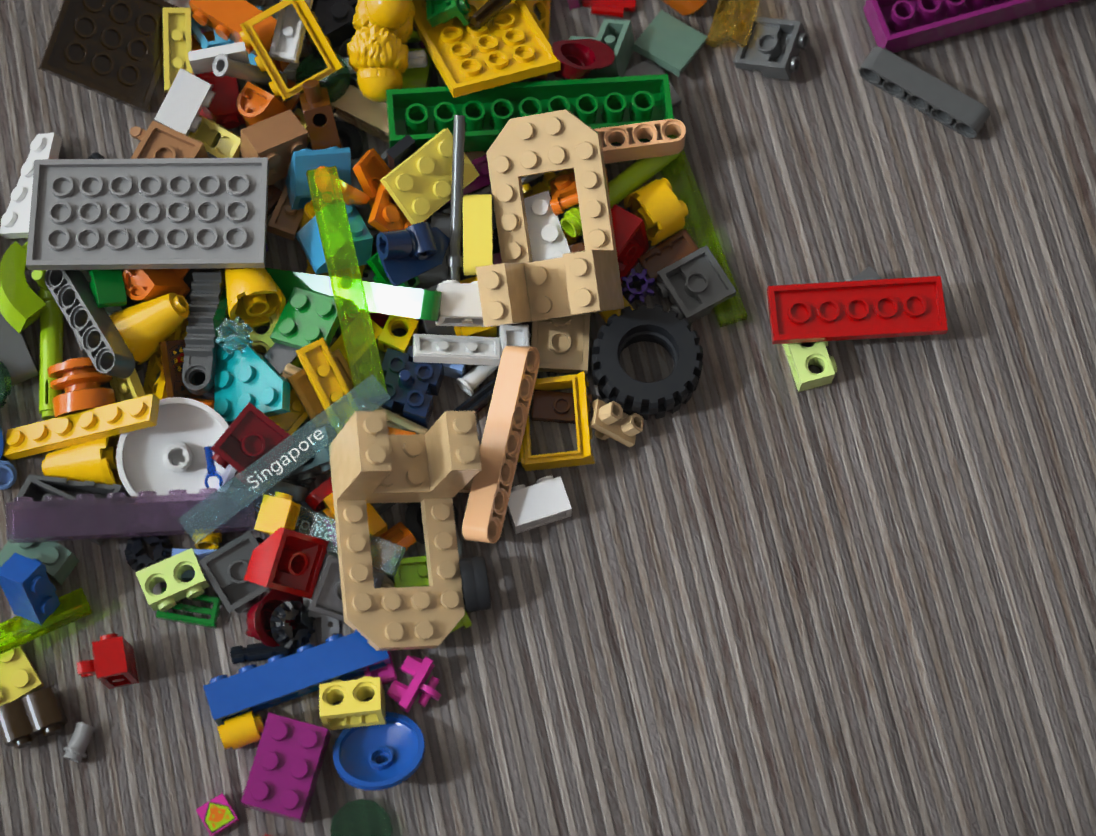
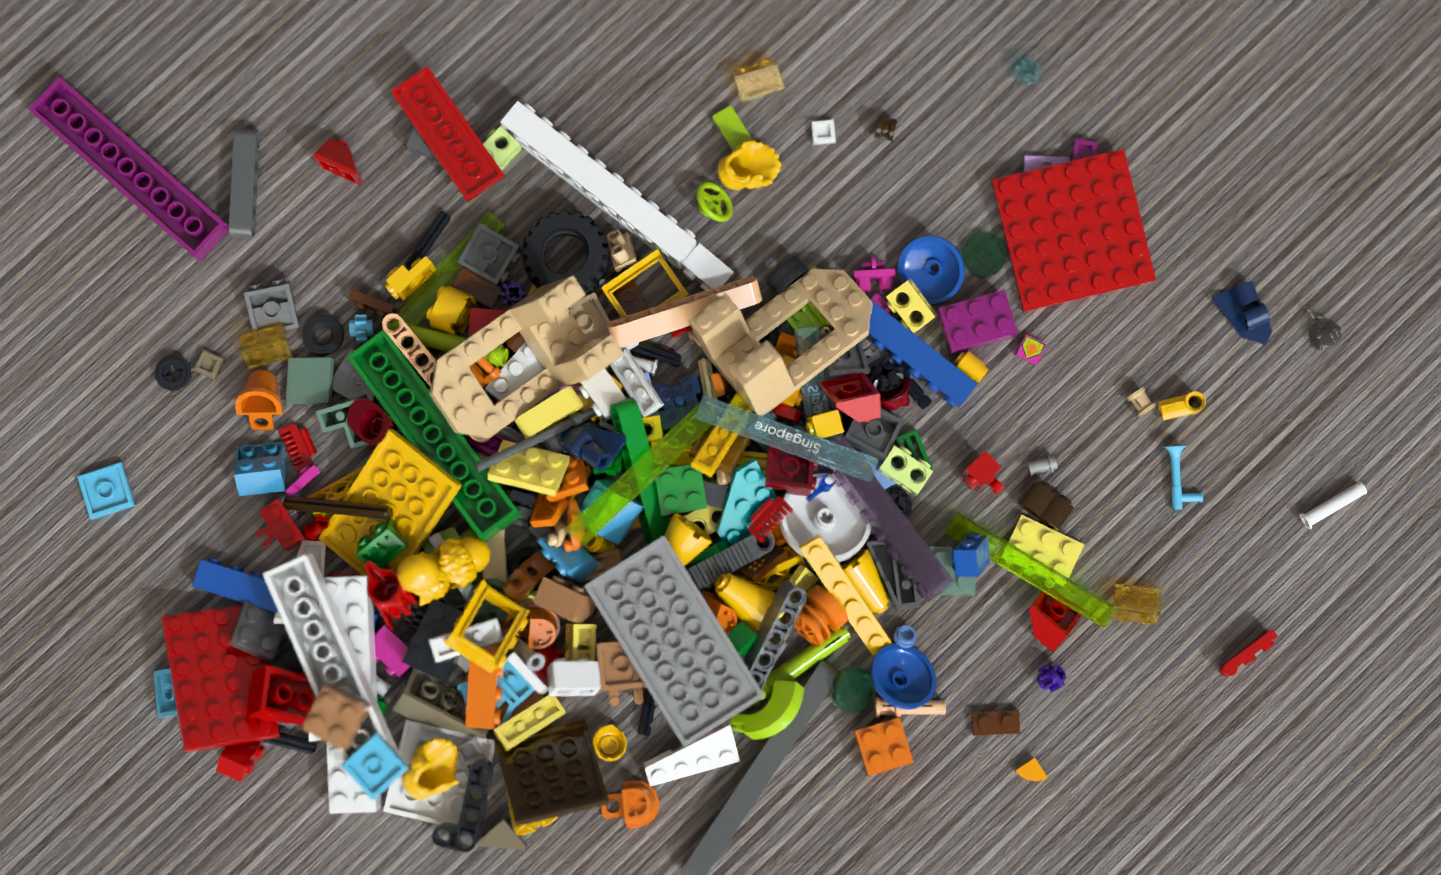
camera: 120 degrees left, 10 degrees up
(29, 108) = (637, 804): none -> orange container
(105, 116) = (609, 743): none -> yellow hair
(219, 394) = (765, 513): none -> red piece
(233, 335) = (717, 526): clear light blue gear -> none
(340, 162) = (557, 539): none -> tan arm
(580, 806) = (885, 128): none -> dark brown wheel
(614, 542) = (710, 205): none -> lime piece
(621, 733) = (823, 132): none -> white tile
(627, 617) = (749, 166): none -> yellow hair
(684, 631) = (731, 127): none -> lime tile
(695, 118) = (361, 328): none -> medium azure gear
(704, 439) = (598, 184): none -> white brick
(711, 98) = (309, 335): none -> black tyre
(716, 185) = (404, 283): none -> yellow plate
(720, 139) = (364, 301): none -> reddish brown plate
(727, 692) = (758, 79): none -> clear yellow bracket
(751, 237) = (429, 238): none -> black axle
(892, 191) = (339, 160): none -> red slope

